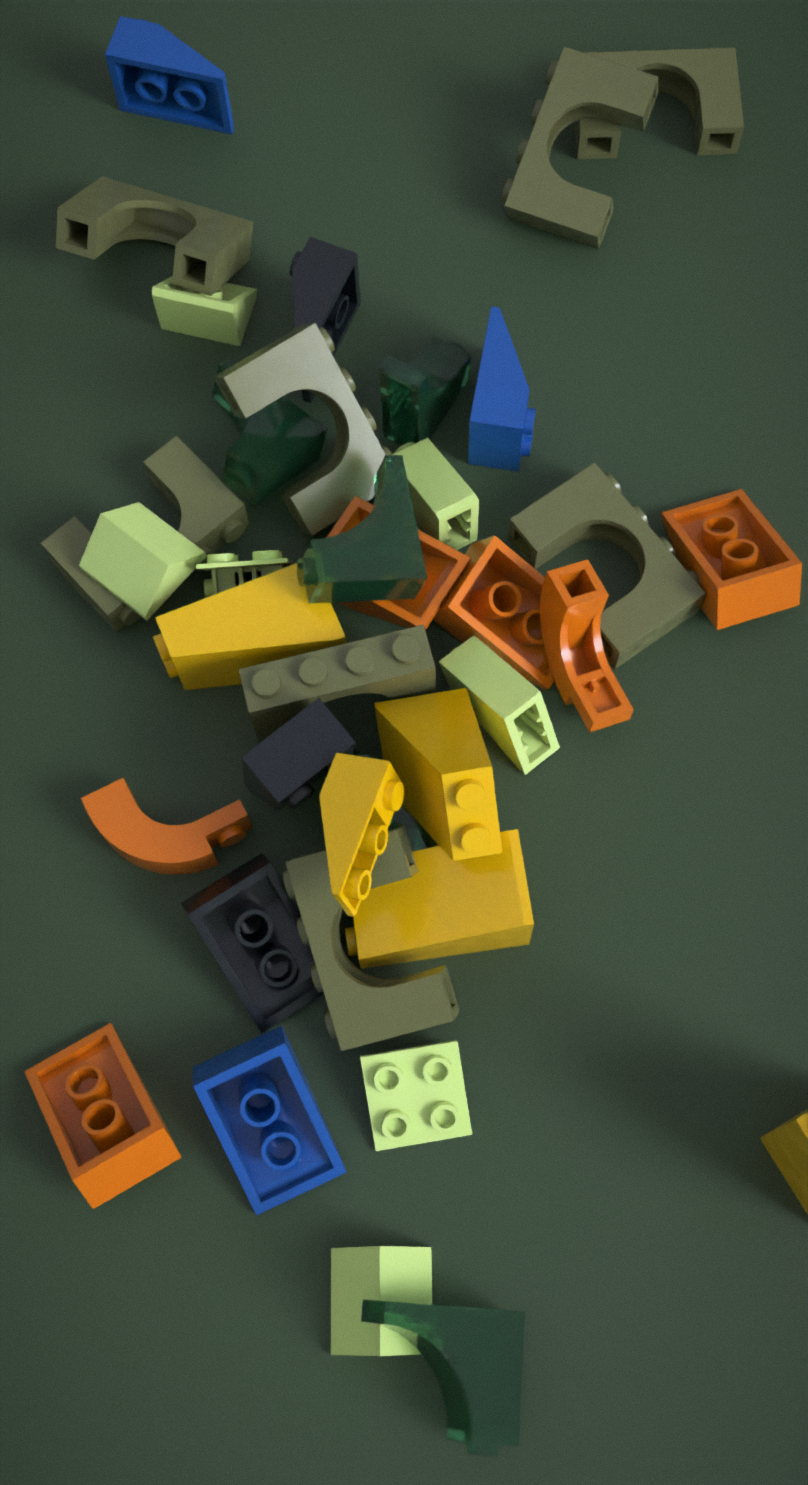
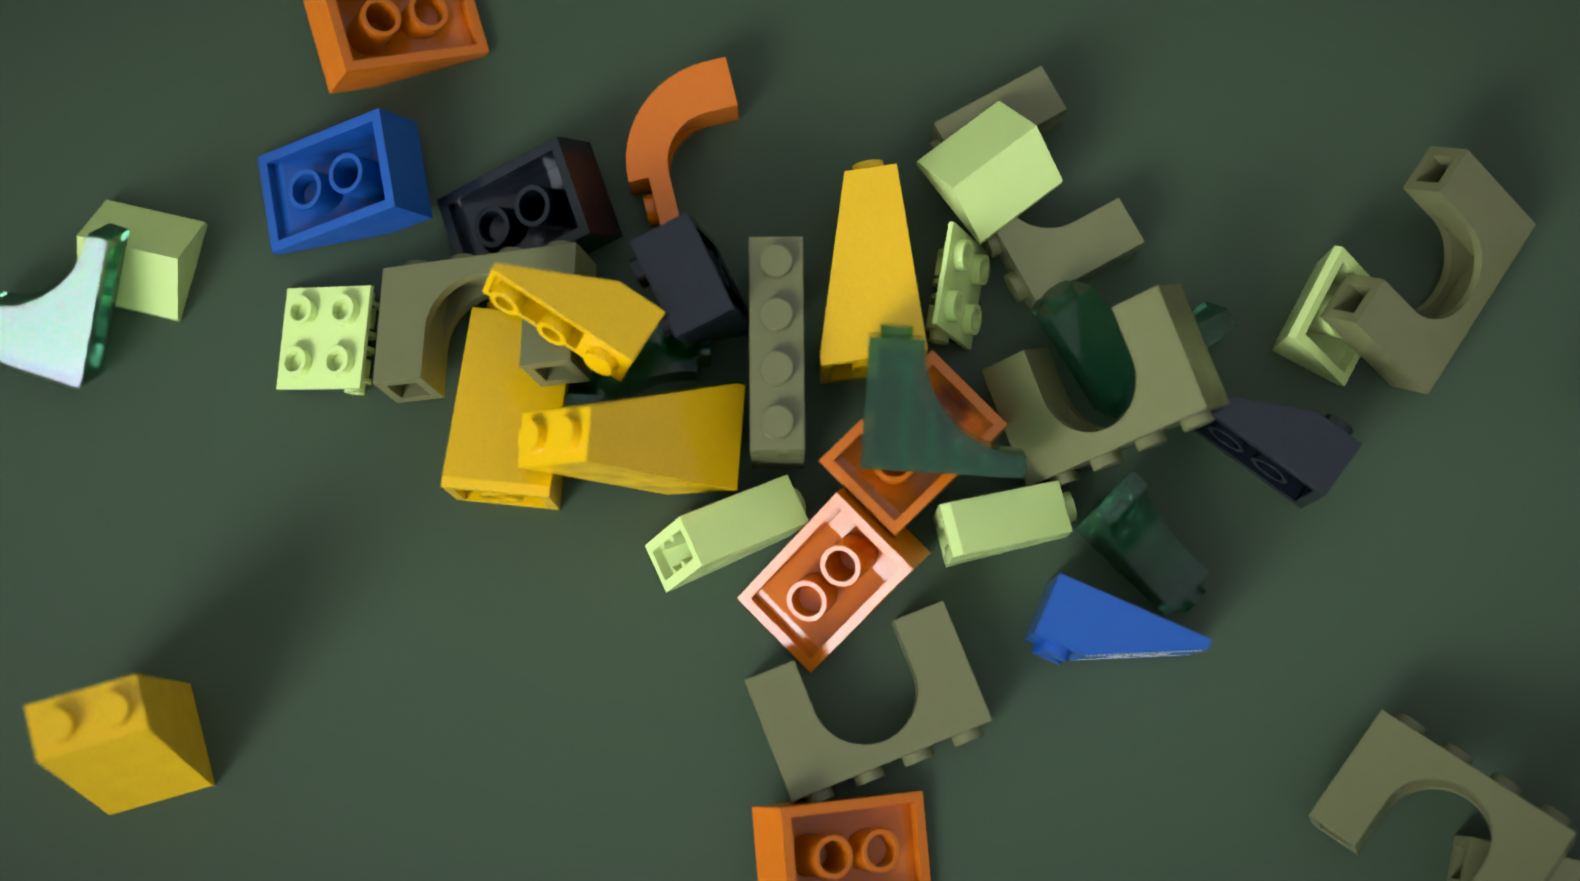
camera: 100 degrees right, 10 degrees up
(572, 641) = (775, 633): orange arch -> none

